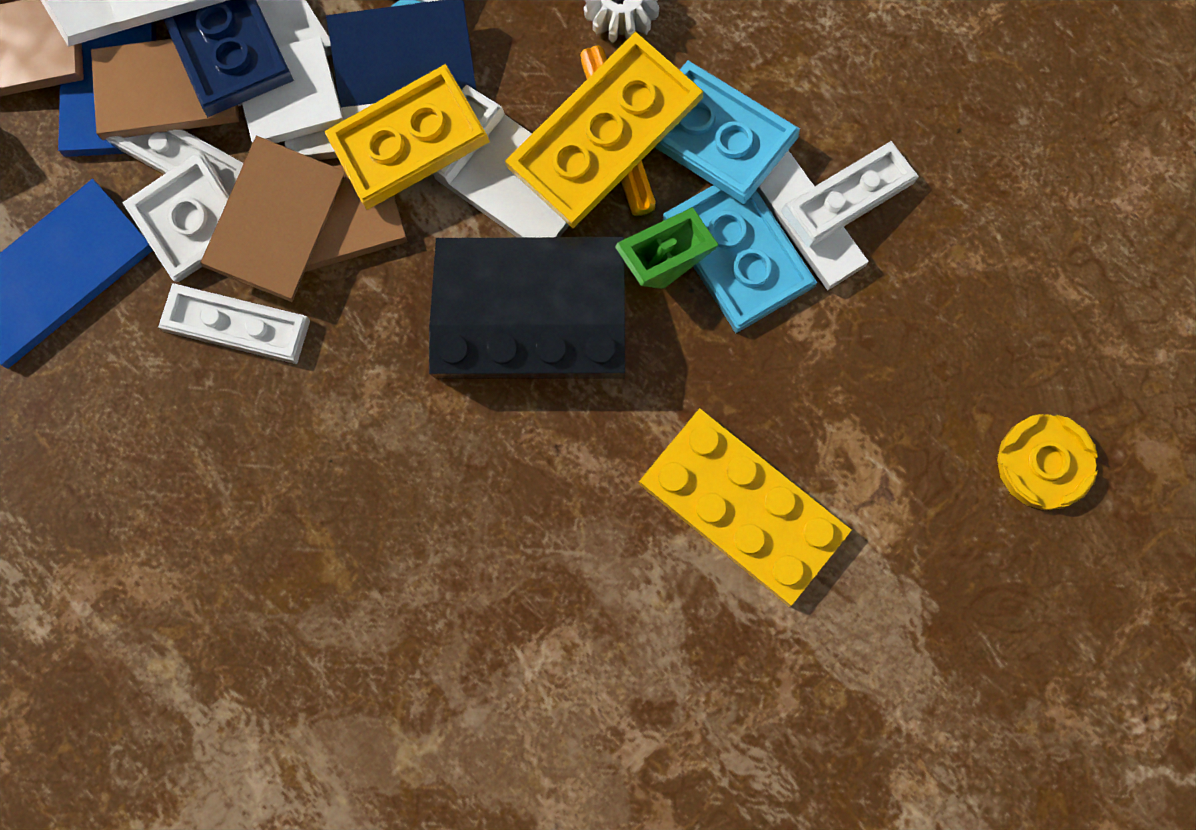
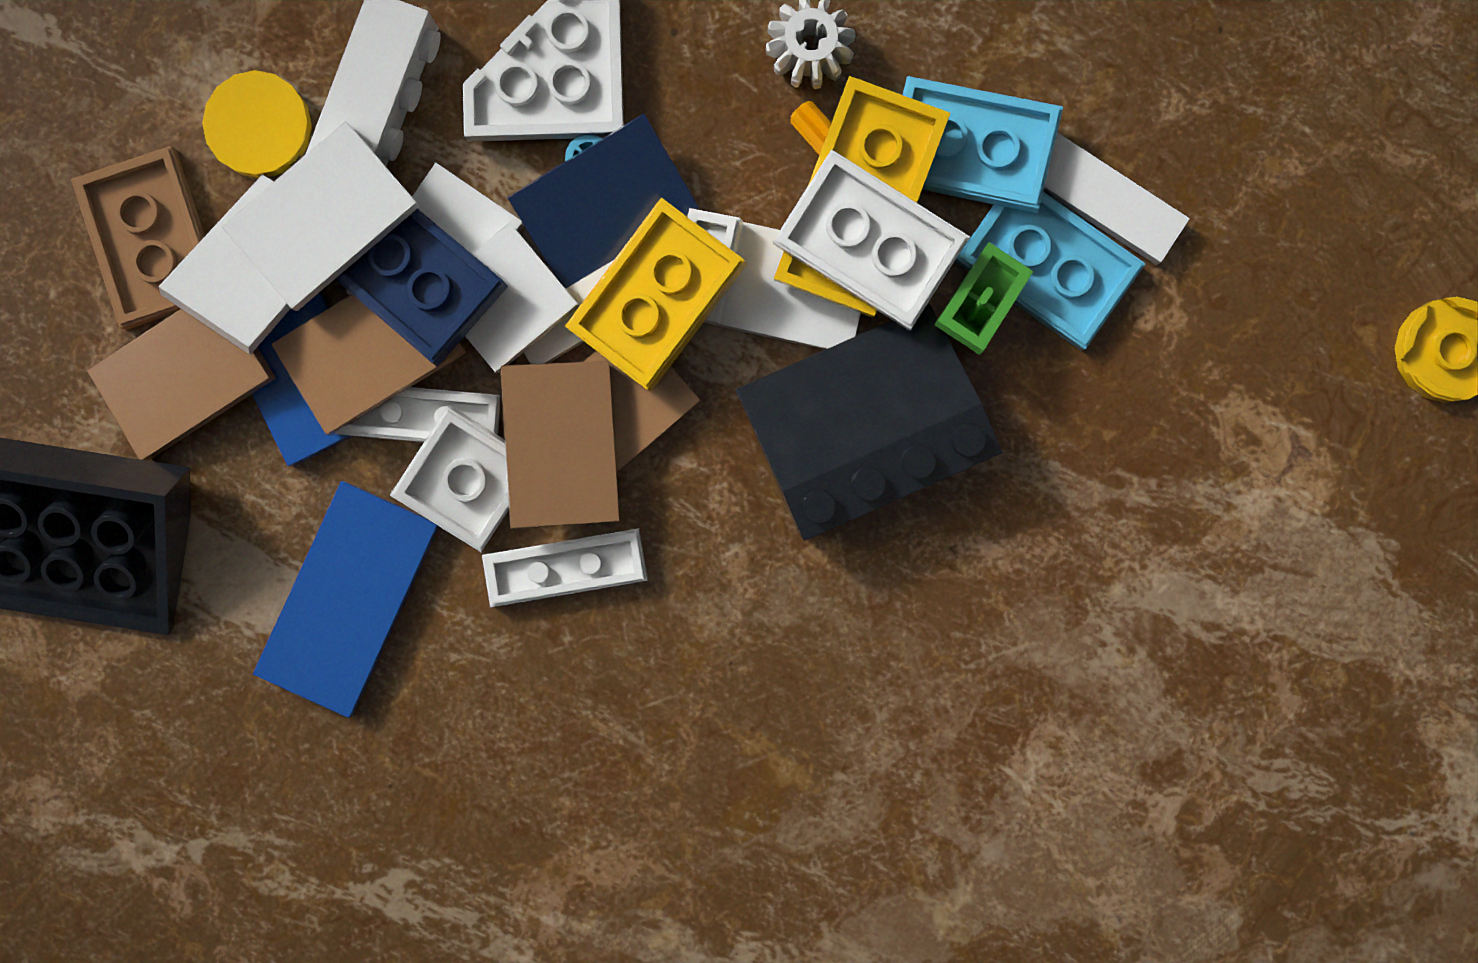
camera: 25 degrees left, 10 degrees up
(594, 161) = (870, 240): none -> white tile
(744, 507) = (1169, 529): yellow plate -> none
(849, 194) = (1141, 154): white tile -> none

